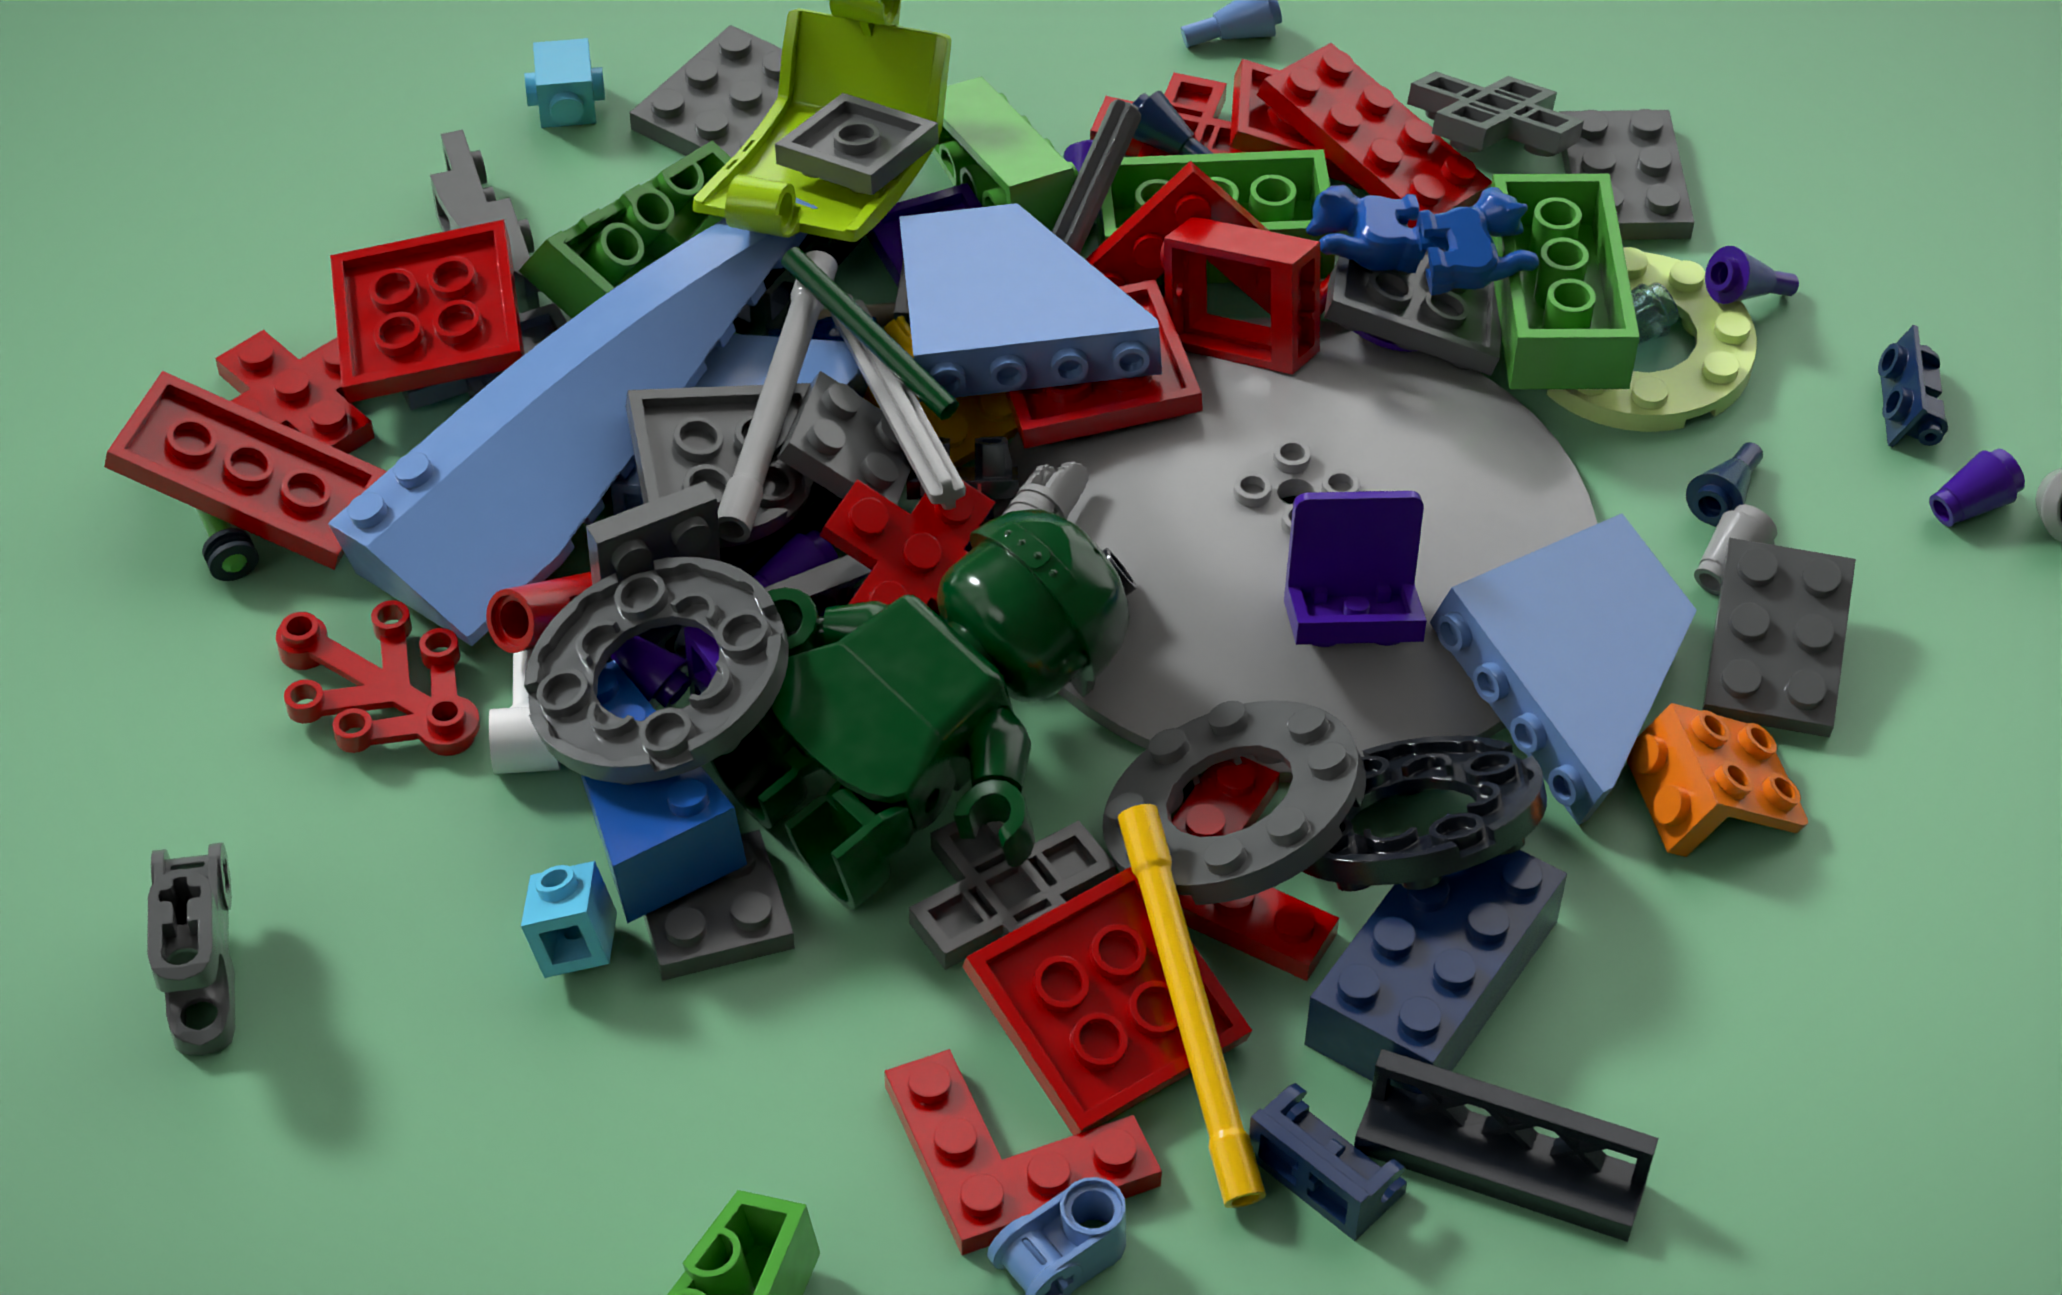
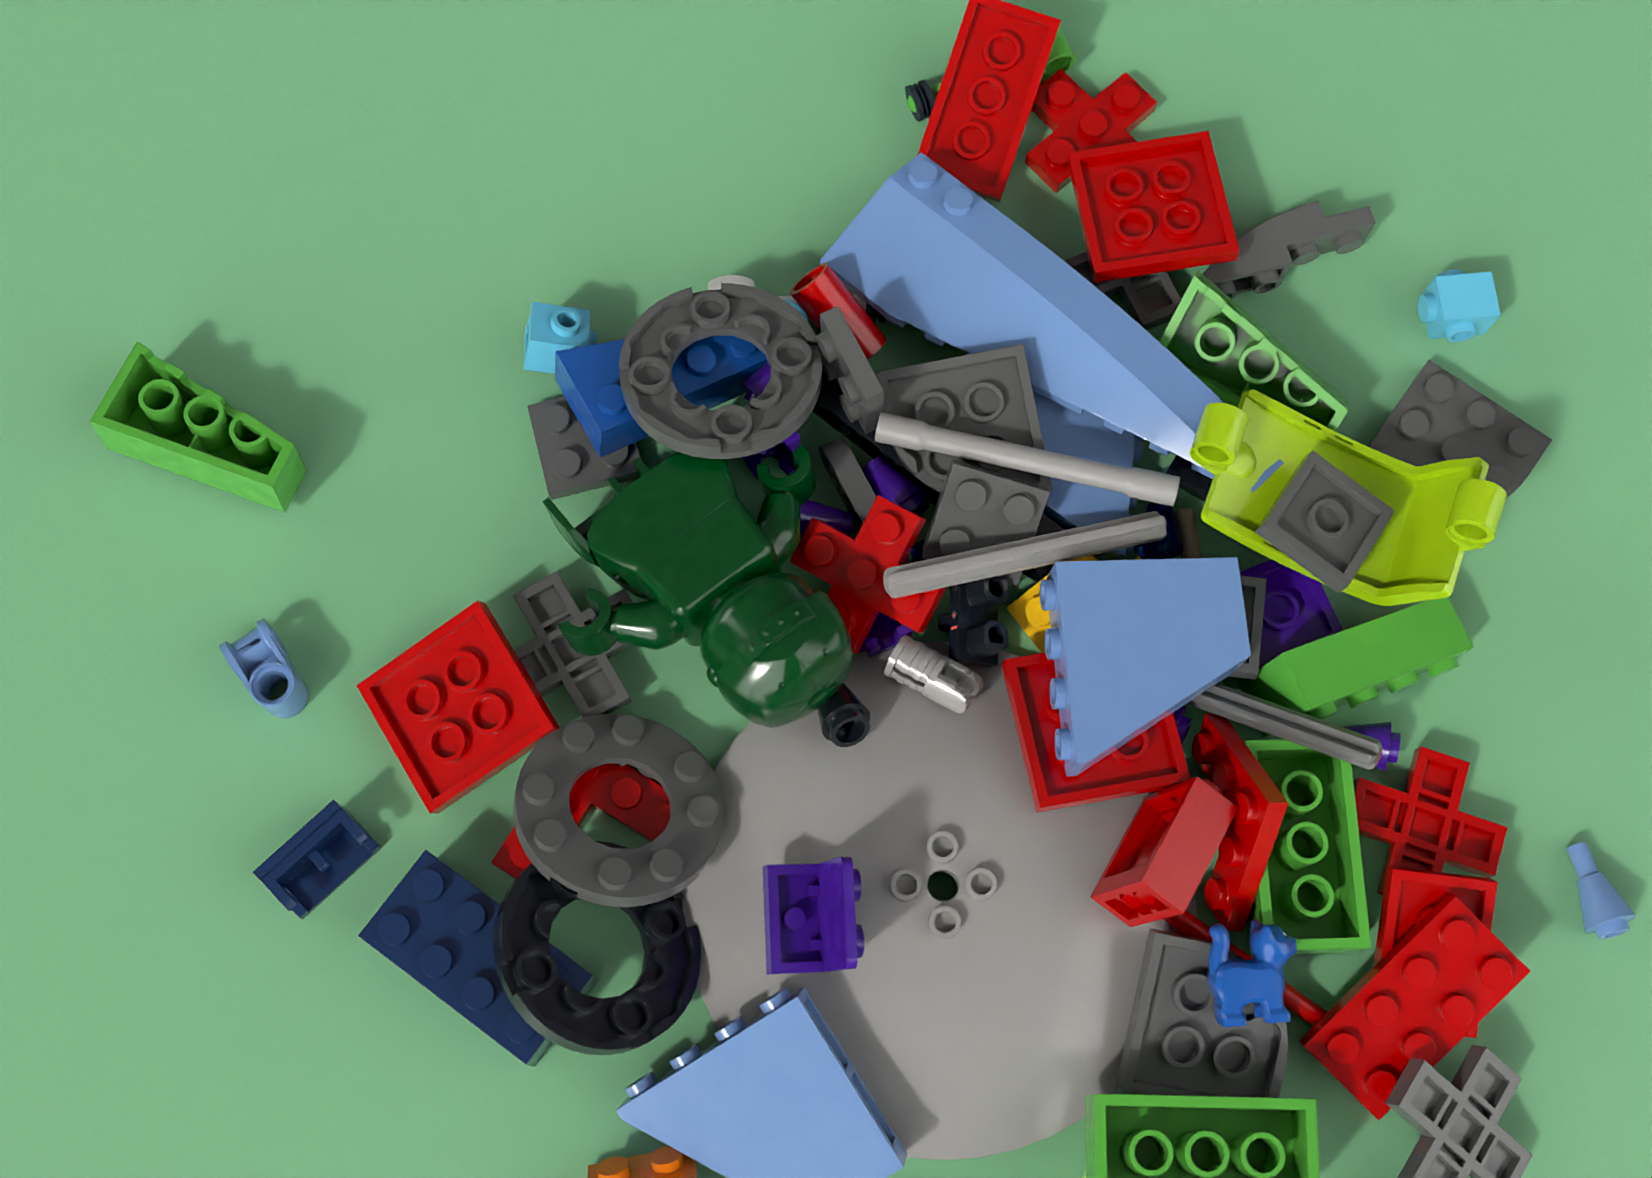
camera: 90 degrees right, 25 degrees up
(192, 944) = (547, 99): dark grey piece -> none
(440, 722) = (793, 213): red plant -> none
(870, 333) = (1082, 526): dark green bar -> none
(966, 1171) = (328, 616): red plate -> none
(1164, 127) = (1412, 806): dark blue cone -> none
(1228, 1141) = (537, 735): yellow piece -> none
(1469, 251) = (1207, 1057): blue animal -> none
(1503, 1151) = (310, 995): black fence -> none

